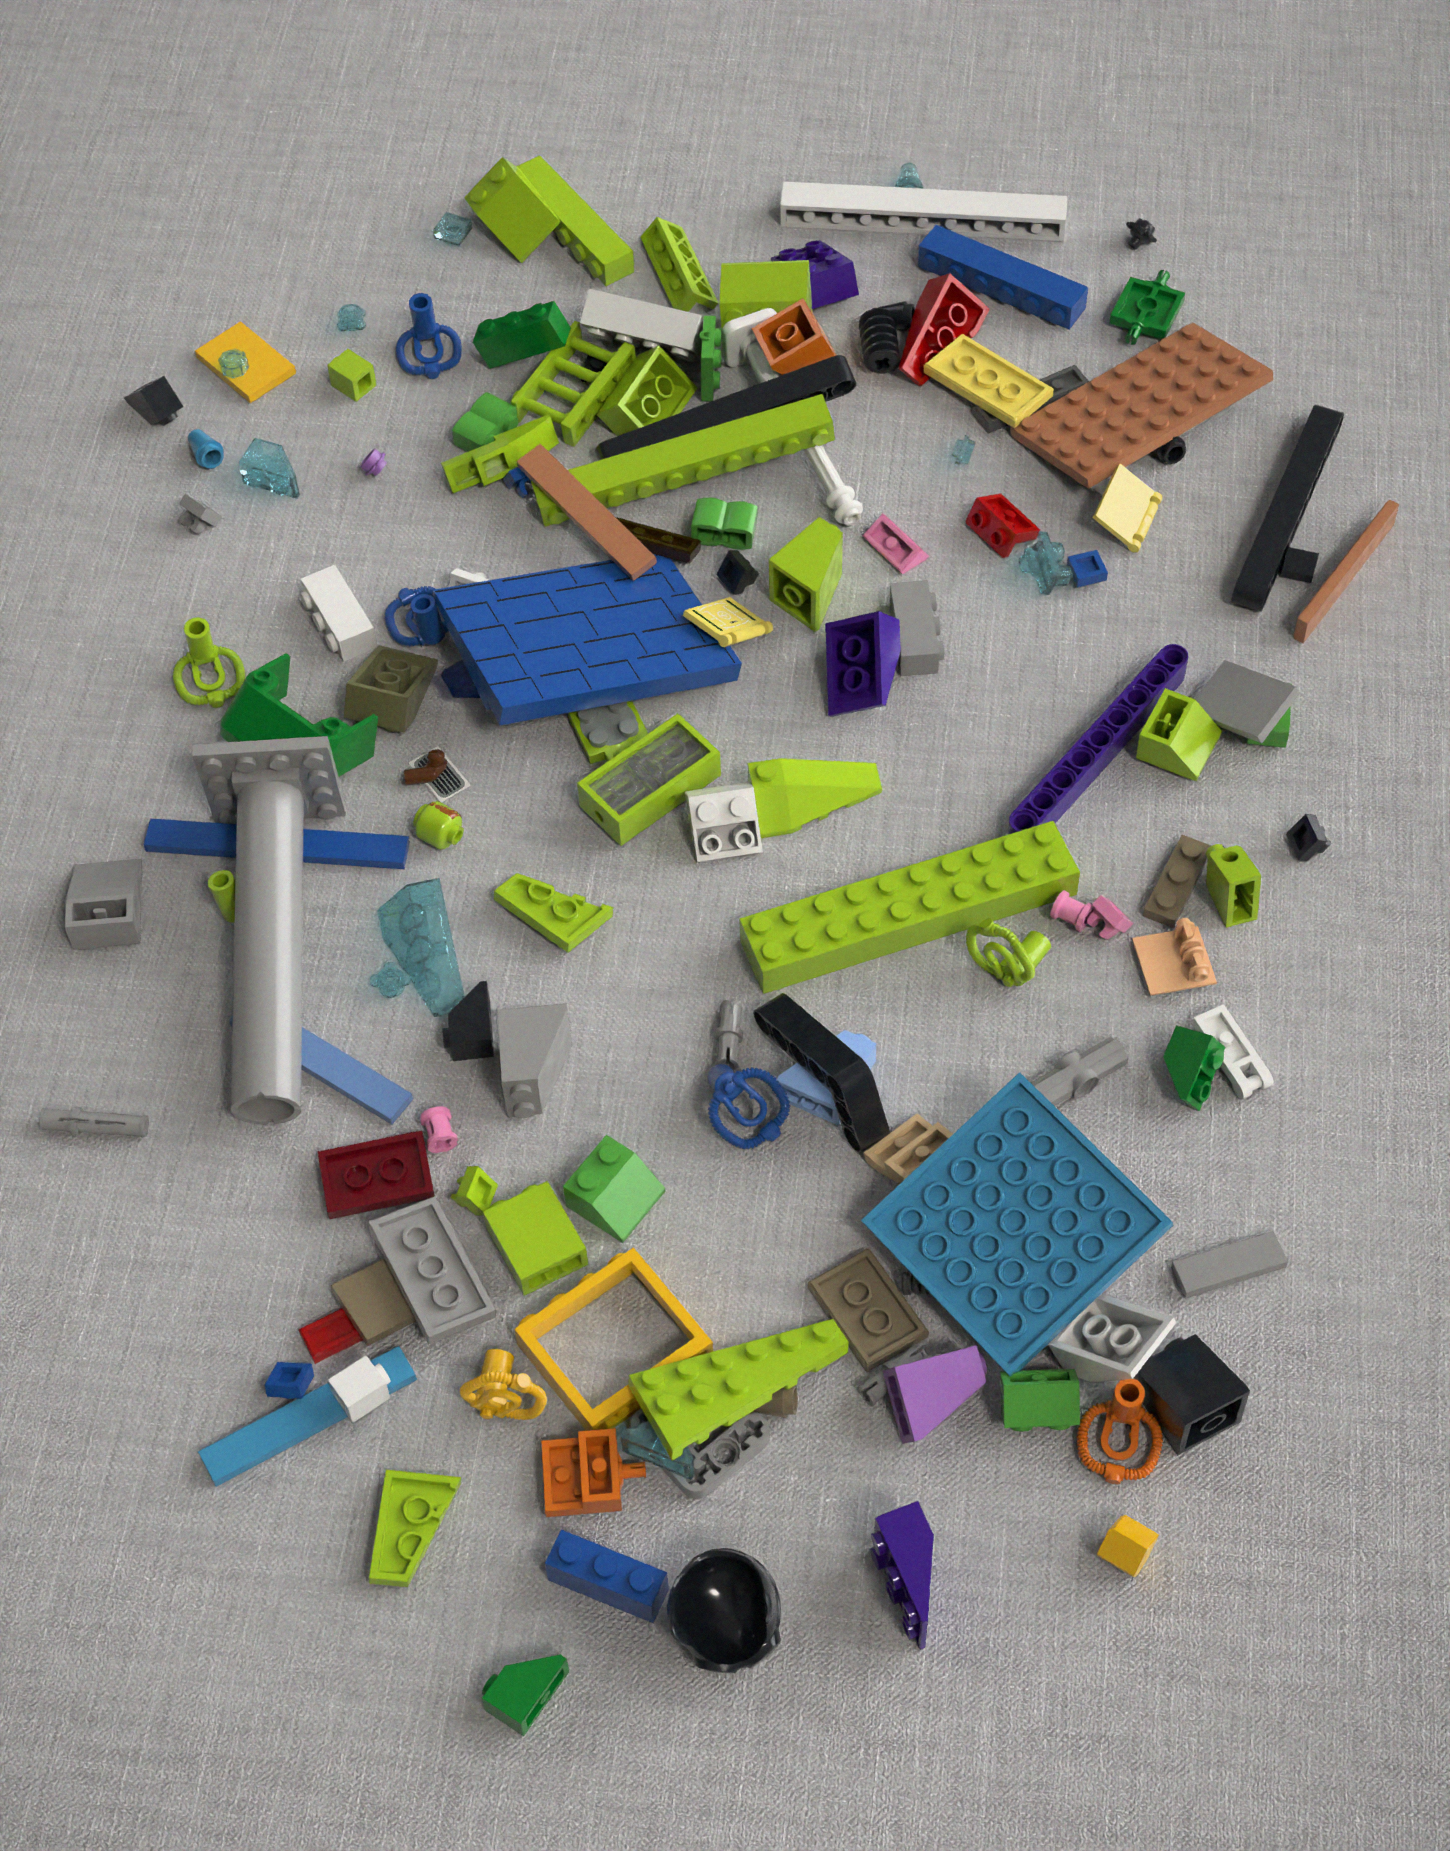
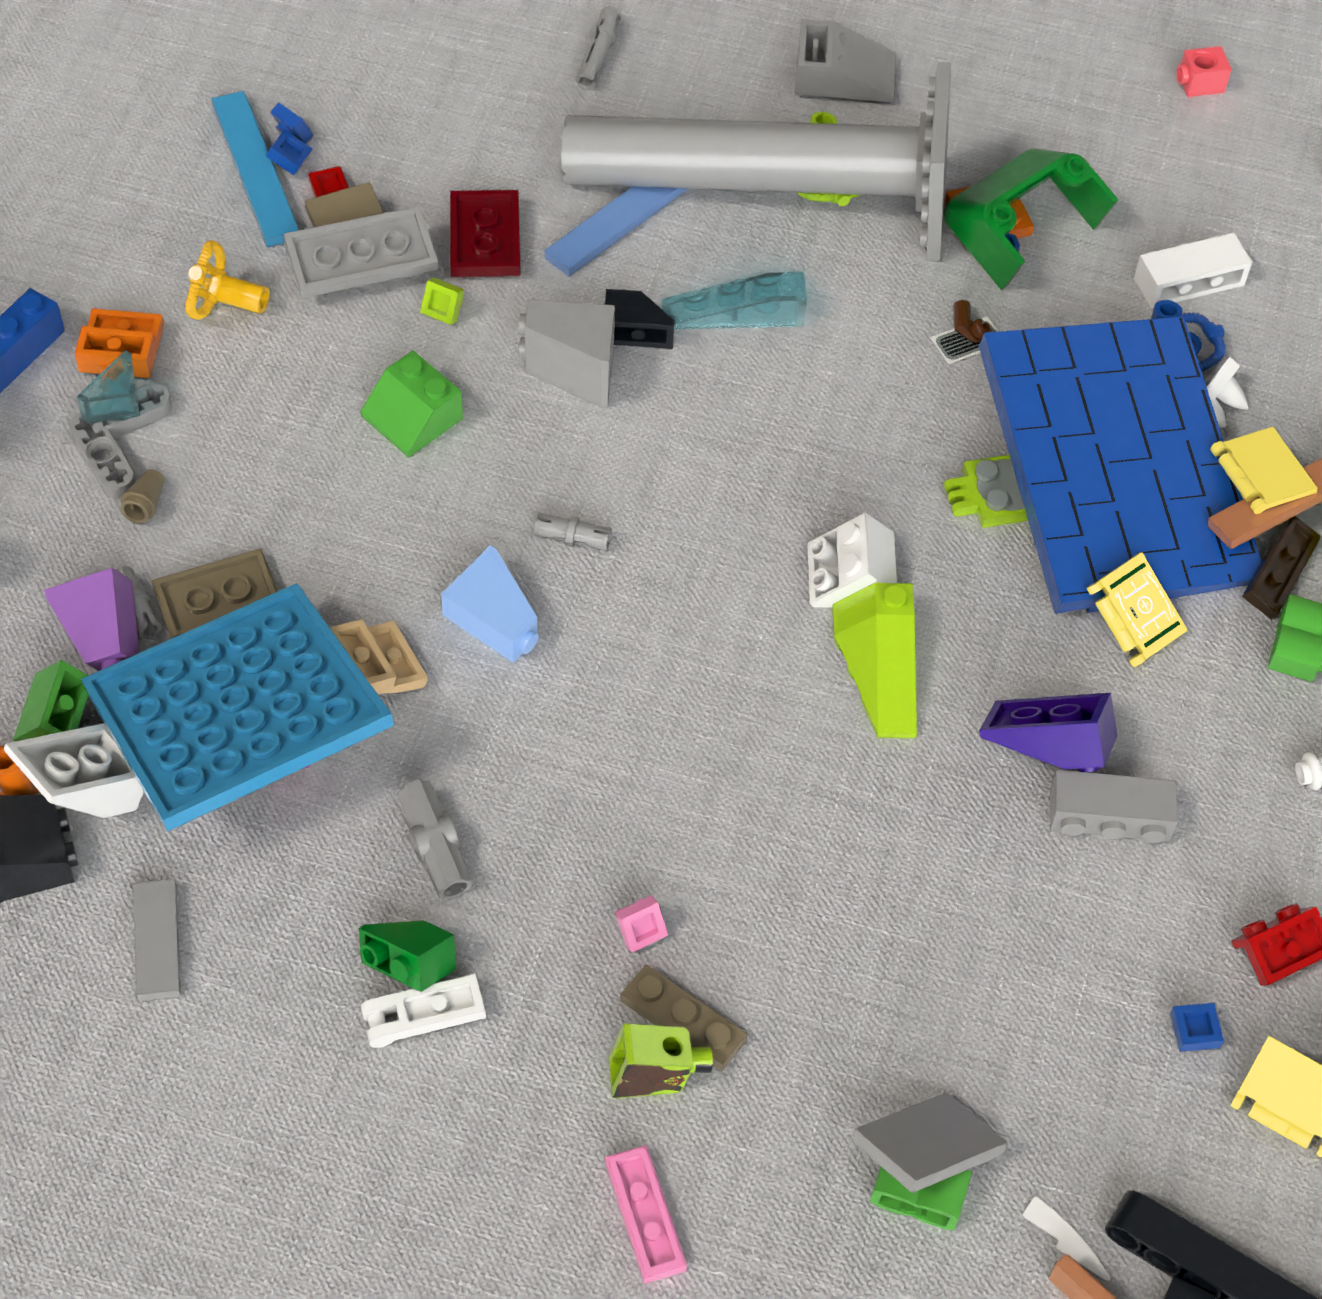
camera: 95 degrees right, 0 degrees up
(81, 619) = (1203, 71): none -> coral brick
(202, 652) = (1149, 156): lime piece -> none
(249, 1388) = (291, 122): none -> blue plate
(318, 845) = (883, 235): blue tile -> none
(360, 1388) = (254, 188): white brick -> none
(390, 687) = (1079, 292): olive slope -> none
(390, 988) = (707, 268): clear light blue plate -> none
(407, 1523) = (123, 219): lime wing -> none
(438, 825) = (889, 320): lime head -> none
(438, 1129) = (520, 282): bright pink bush -> none
(535, 1237) = (375, 336): lime brick -> none
(553, 914) = (762, 403): lime wing -> none
(579, 537) = (1263, 468): none -> light yellow piece
(590, 1287) = (262, 431): yellow window -> none
(649, 779) = (915, 499): brick -> none
(723, 1386) = (155, 442): lime wing -> none
(728, 1086) = (490, 499): blue piece -> none
(736, 572) = (1218, 638): black tile -> none
(807, 573) = (1200, 699): lime slope -> none
(831, 1064) = (485, 573): black beam -> none
(894, 544) = (1262, 822): bright pink slope -> none
(907, 906) = (697, 726): lime brick -> none
(1016, 967) = (589, 808): lime piece -> none
(1043, 564) = (1189, 979): clear light blue hips -> none
(1071, 911) = (658, 882): bright pink bush -> none
(1101, 741) = (902, 987): dark purple beam -> none
(1174, 959) = (567, 983): light nougat hinge -> none
(1178, 736) = (893, 1058): lime slope -> none
(1272, 632) = (1068, 1238): none -> white sticker
(1307, 837) = (712, 1178): black tile -> none
(1343, 880) = (645, 1214): none -> bright pink tile

